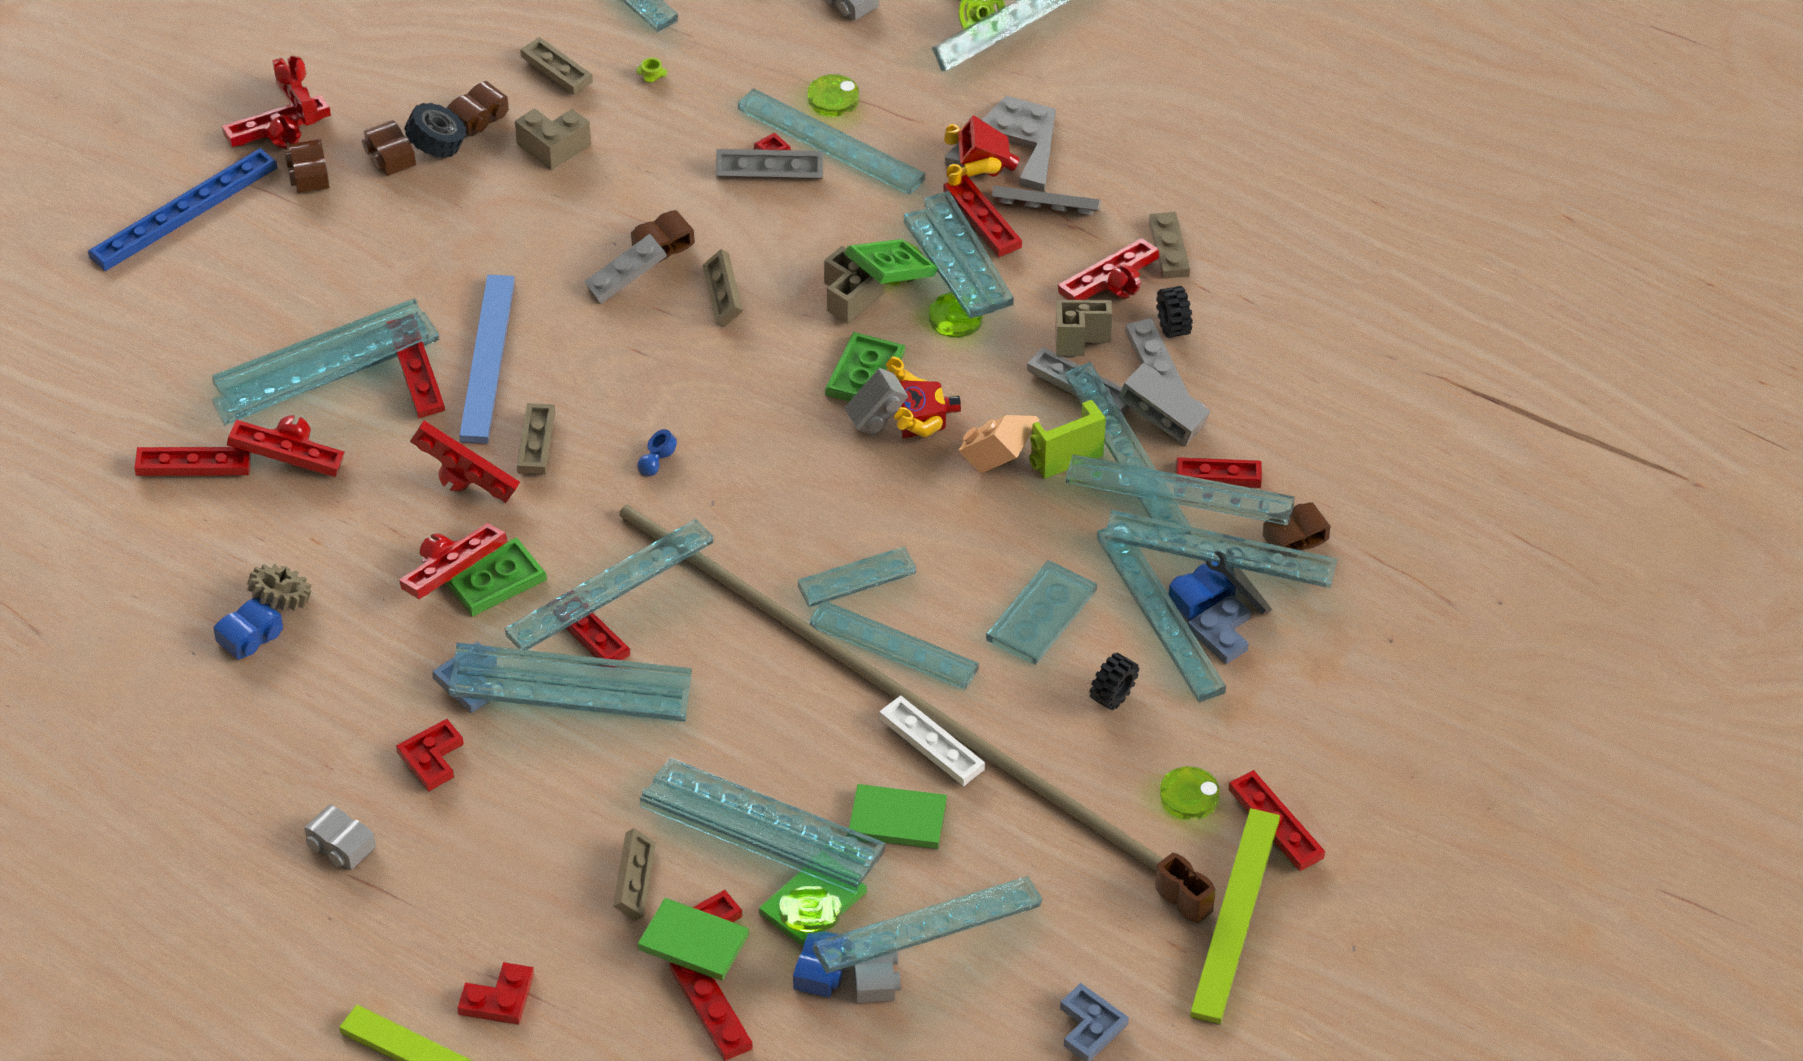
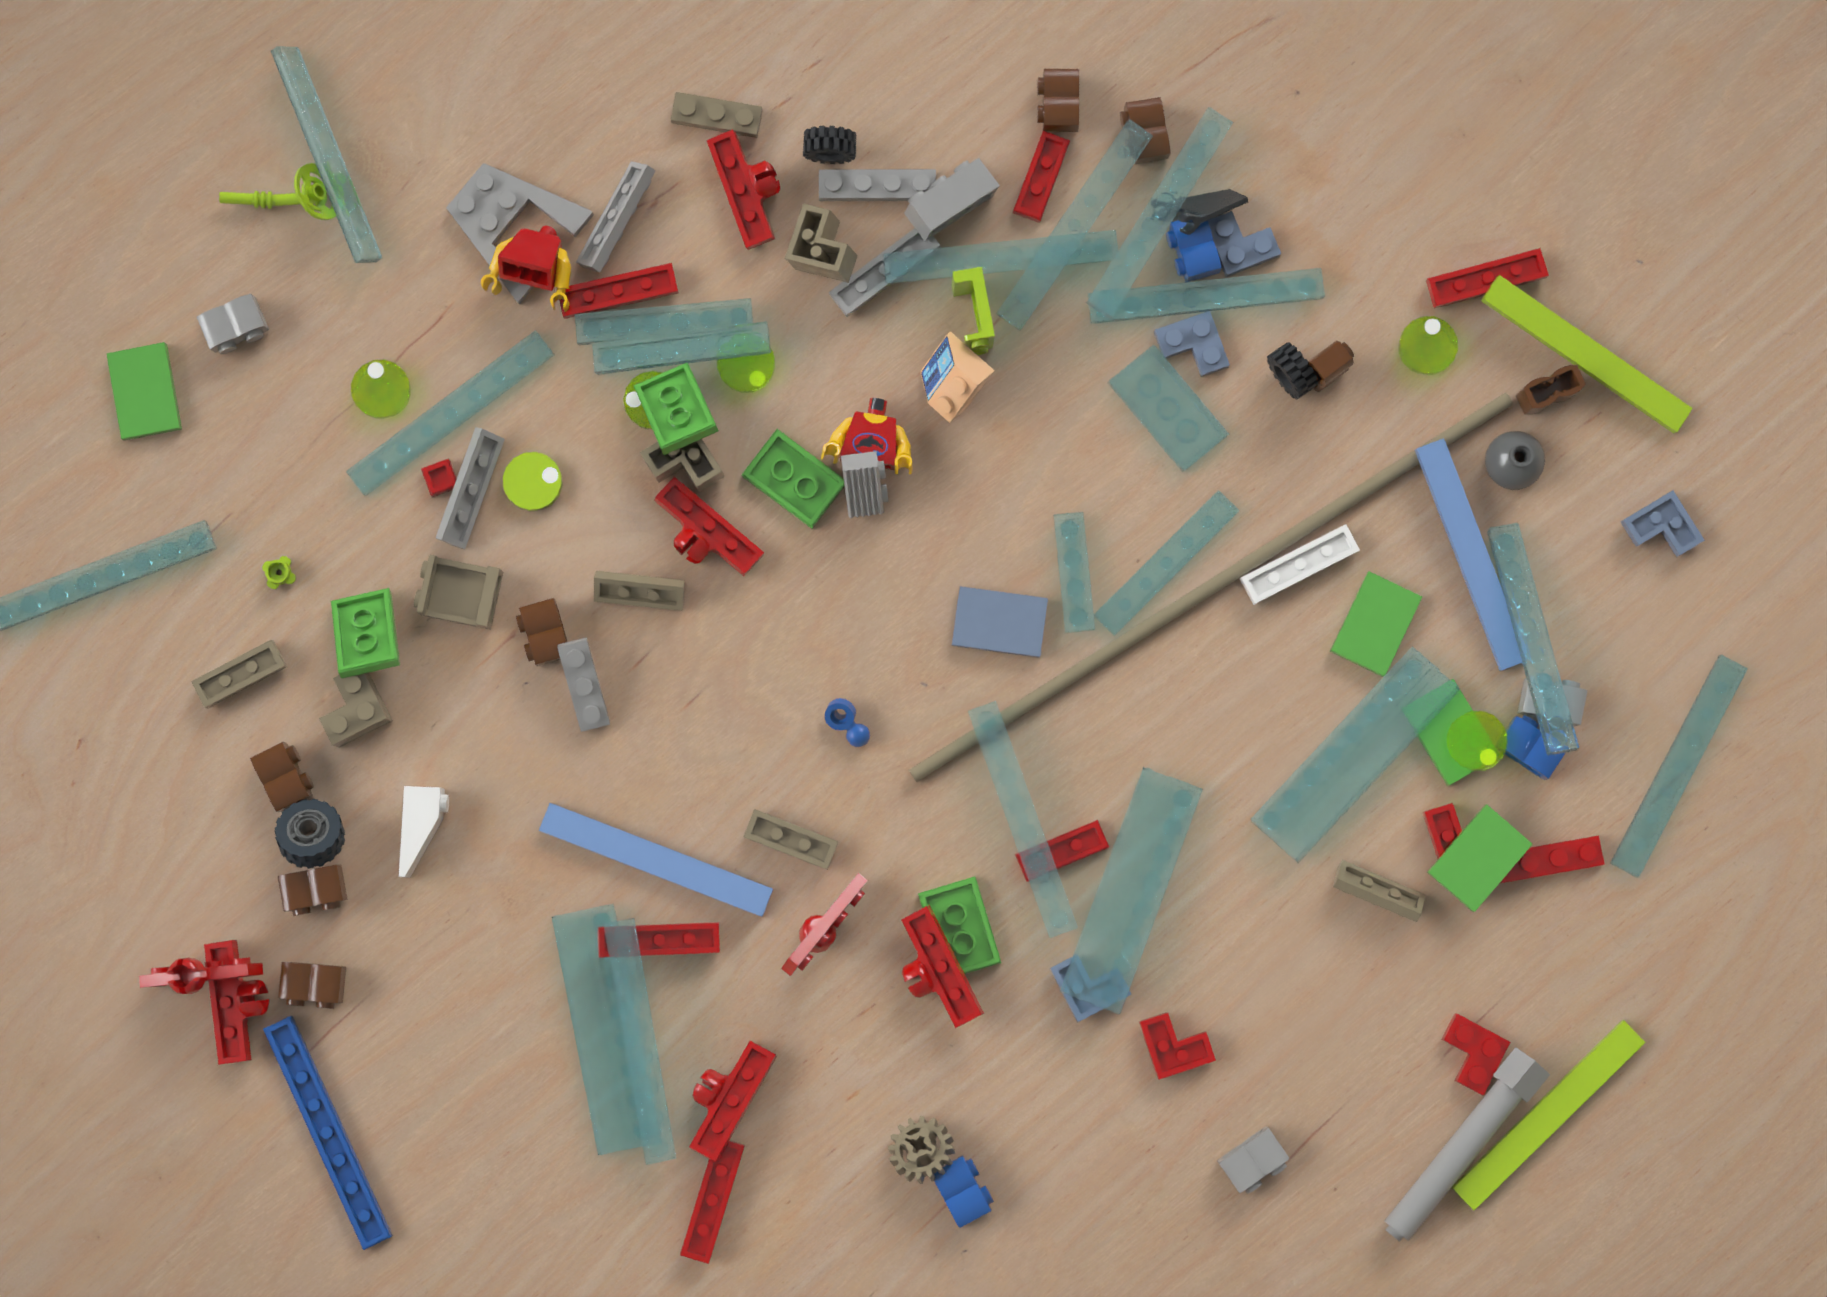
camera: 75 degrees left, 35 degrees up
(403, 999) = (1517, 1080): none -> light grey brick
(467, 198) = (420, 820): none -> white slope
(618, 123) = (365, 633): none -> bright green tile
(677, 178) = (458, 592): none -> dark tan panel
(790, 538) = (999, 622): none -> sand blue tile
(792, 203) = (532, 481): none -> lime tile
(792, 318) = (706, 529): none -> red plate
(1019, 852) = (1470, 551): none -> medium blue tile
(1105, 885) = (1505, 469): none -> dark grey piece
(1118, 618) = (1197, 335): none -> sand blue plate
(1130, 704) = (1331, 363): none -> reddish brown brick
(1295, 464) = (1060, 100): none -> reddish brown brick

